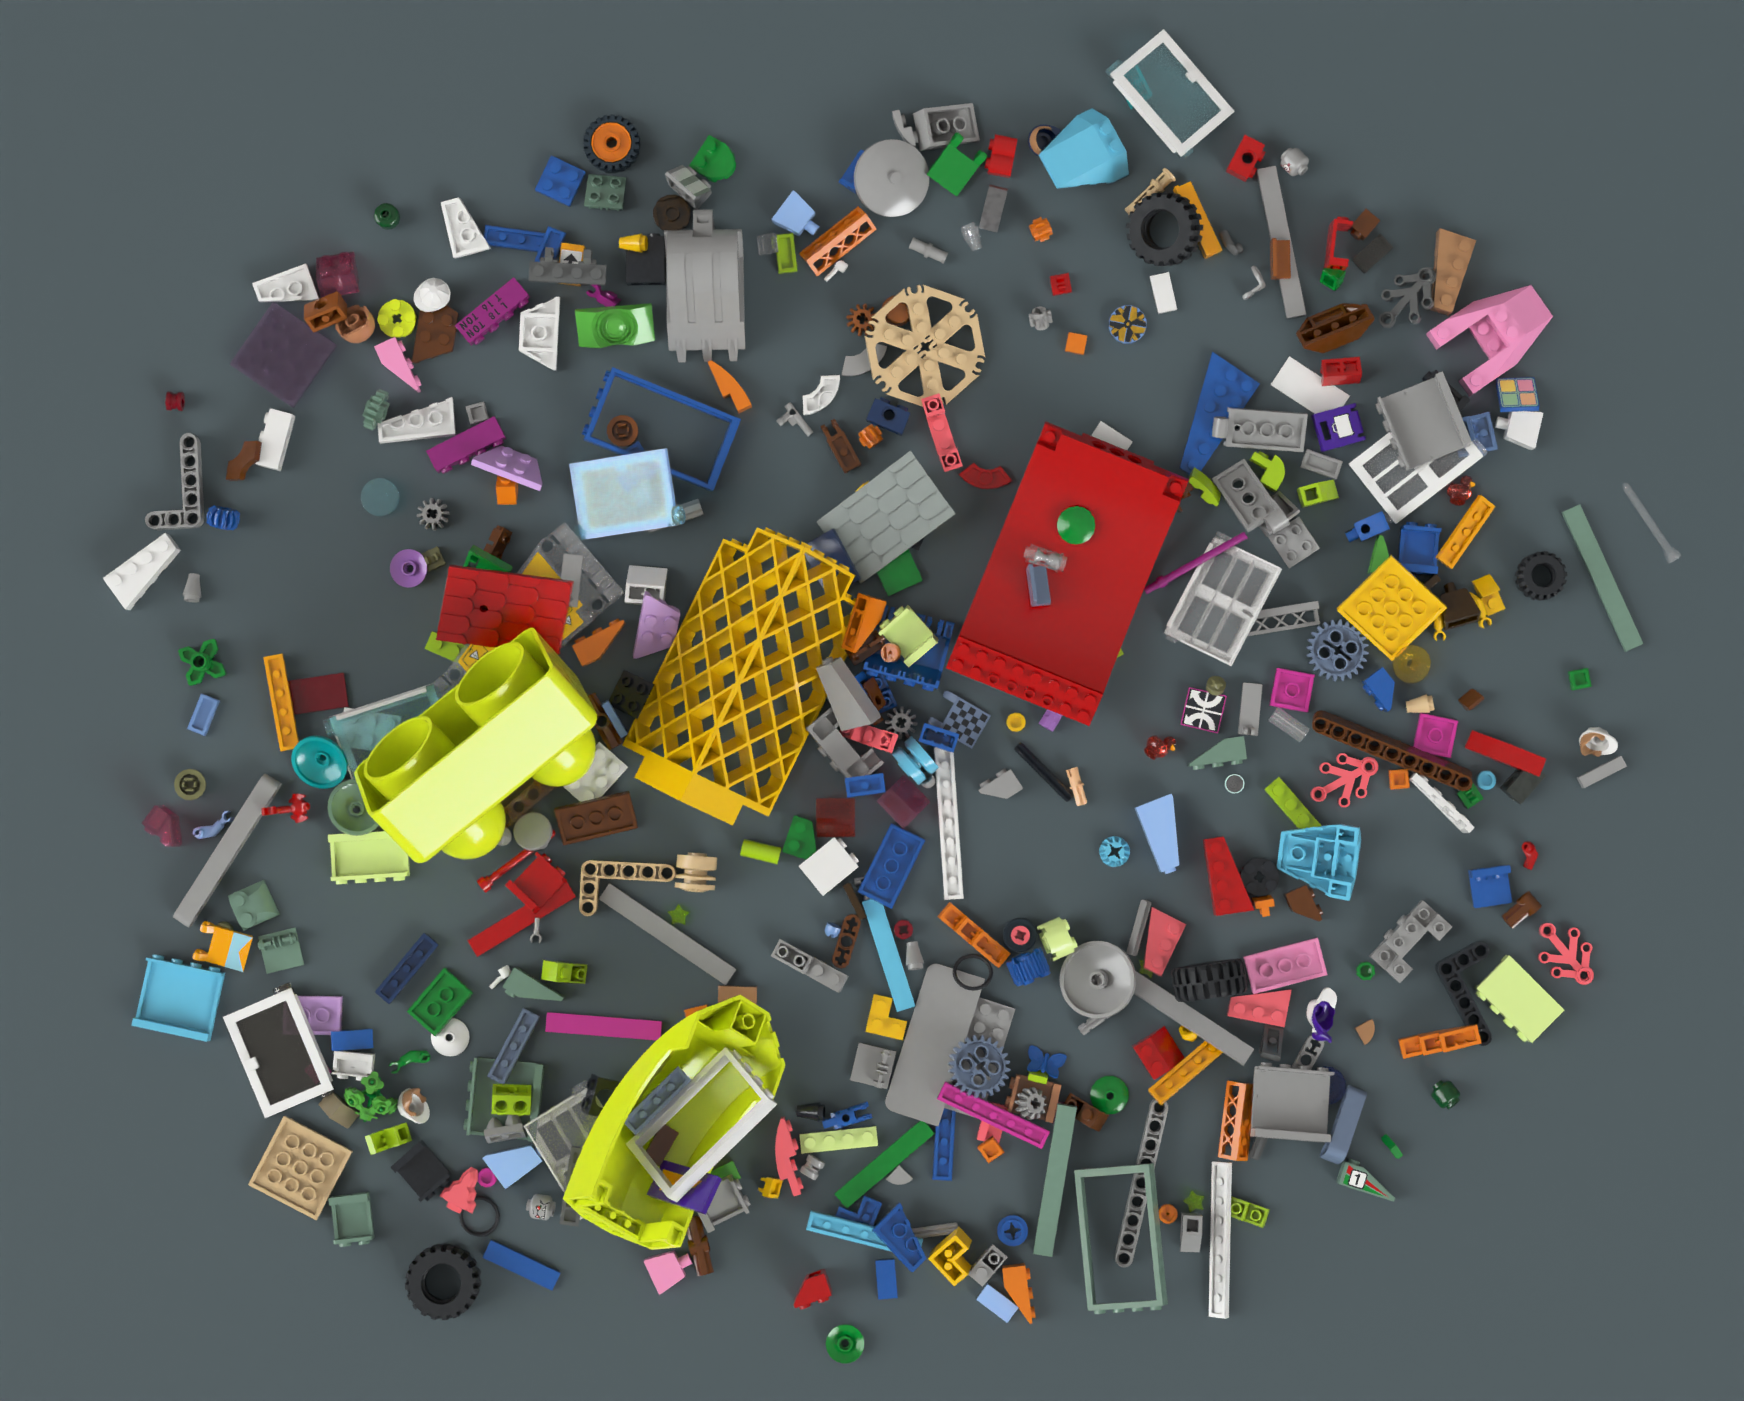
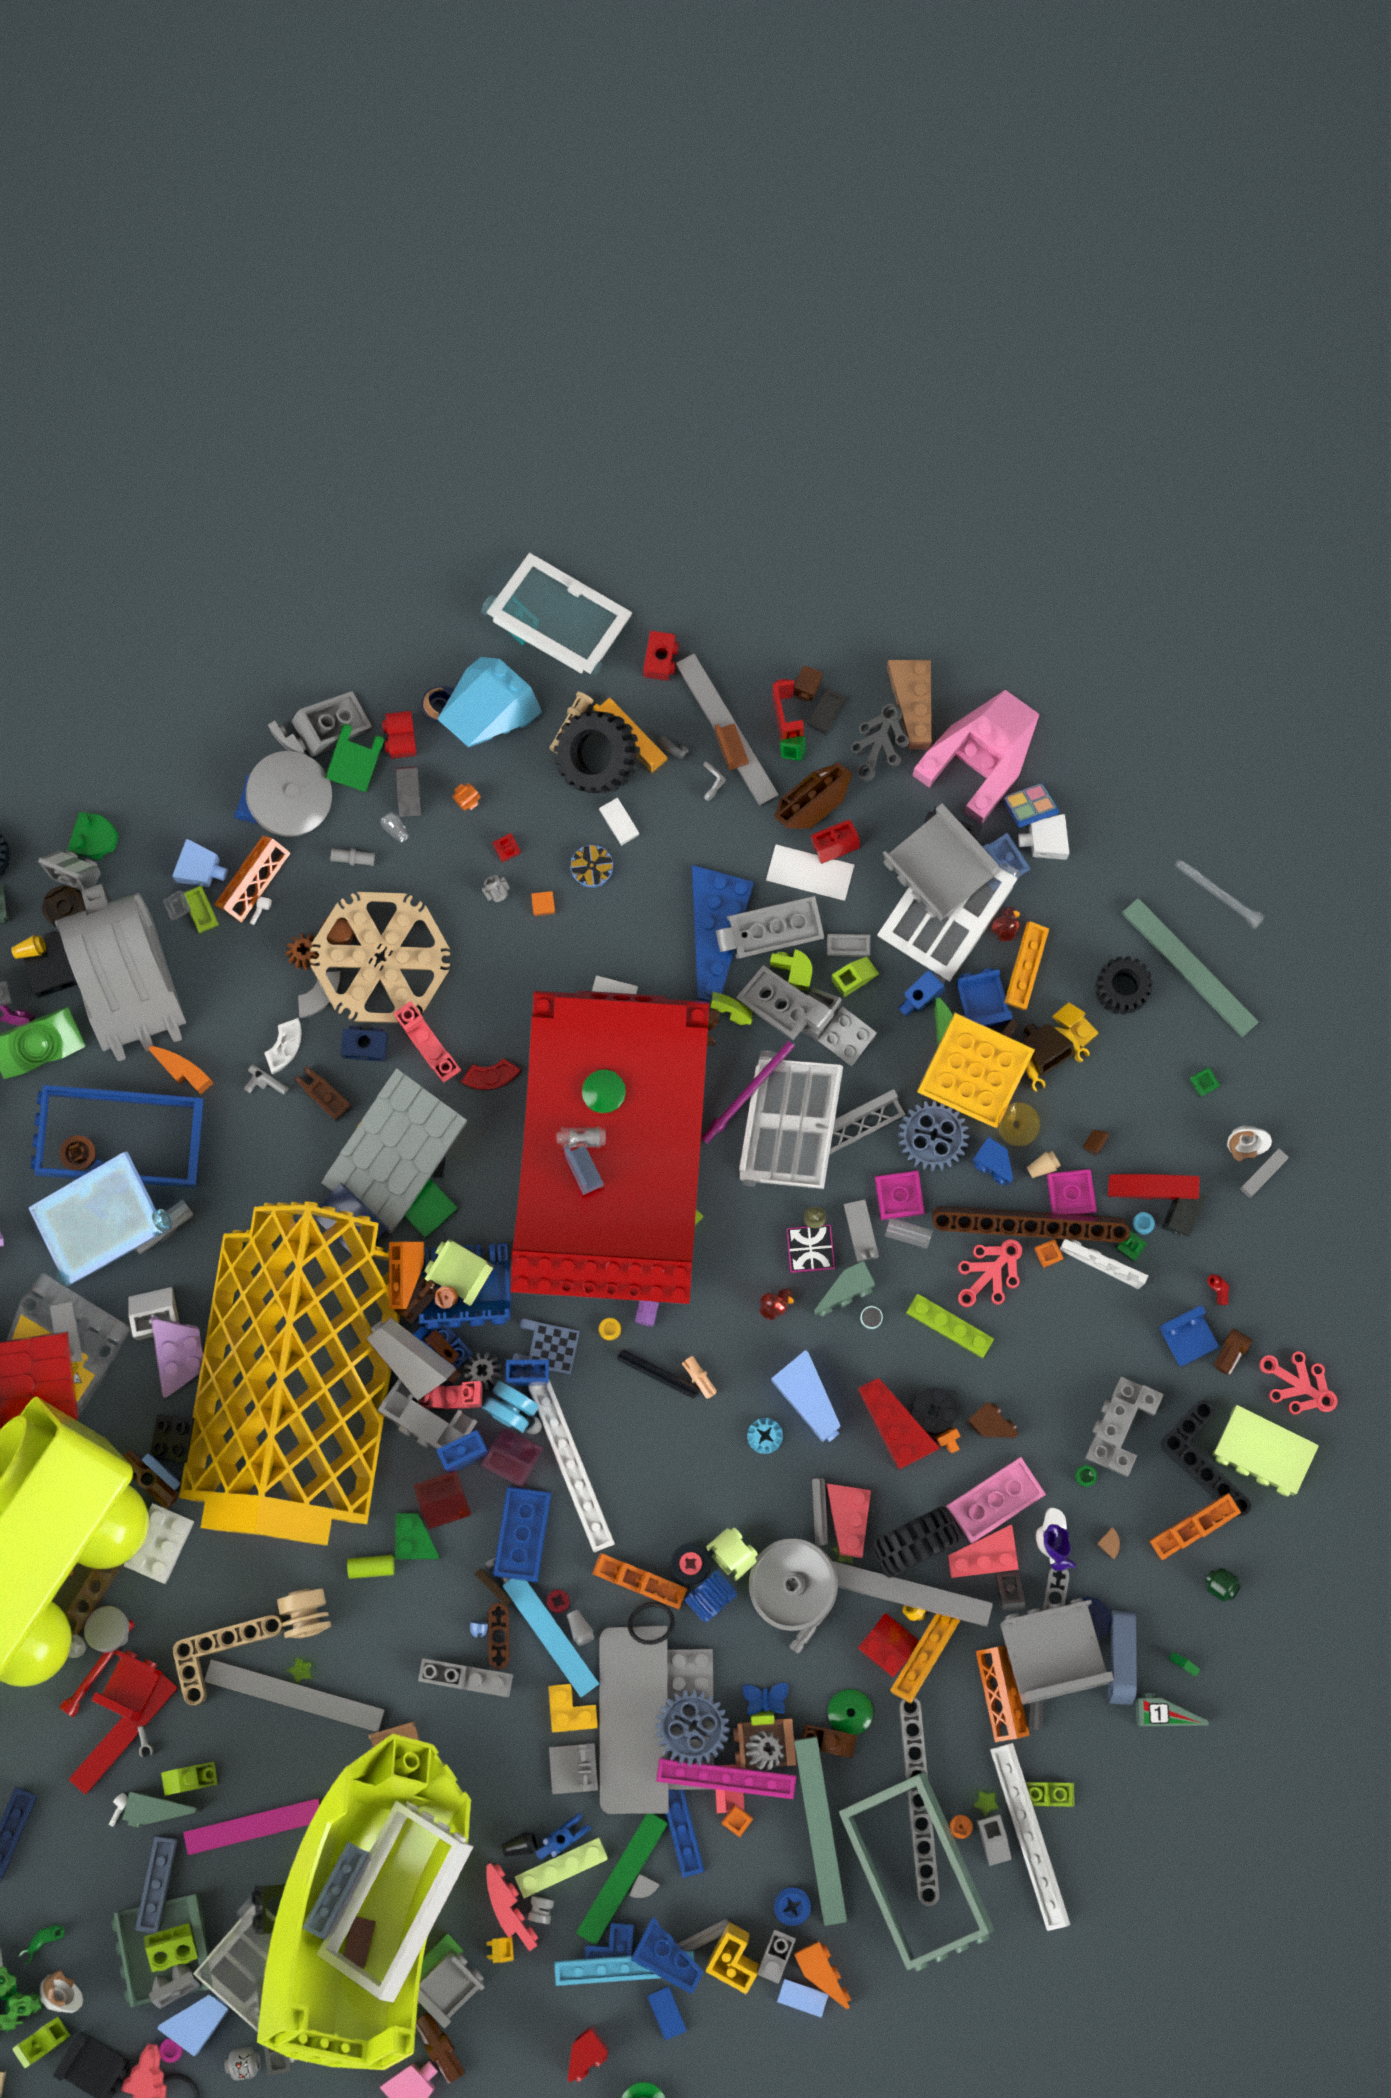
camera: 20 degrees left, 10 degrees down
(440, 1002) = (57, 1861): green tile -> none
(459, 1042) = (92, 1898): white dish -> none
(593, 648) = (116, 1398): orange slope -> none
(596, 818) = (174, 1590): reddish brown tile -> none
(697, 1198) = (415, 1989): dark purple tile -> none
(829, 865) = (452, 1556): white panel -> none
(870, 436) = (351, 1071): orange gear -> none
(1003, 786) = (617, 1405): light grey slope -> none
(1294, 161) = (712, 643): light grey head -> none
(1322, 857) = (995, 1365): medium azure wedge -> none
(1342, 427) = (857, 897): dark purple container -> none

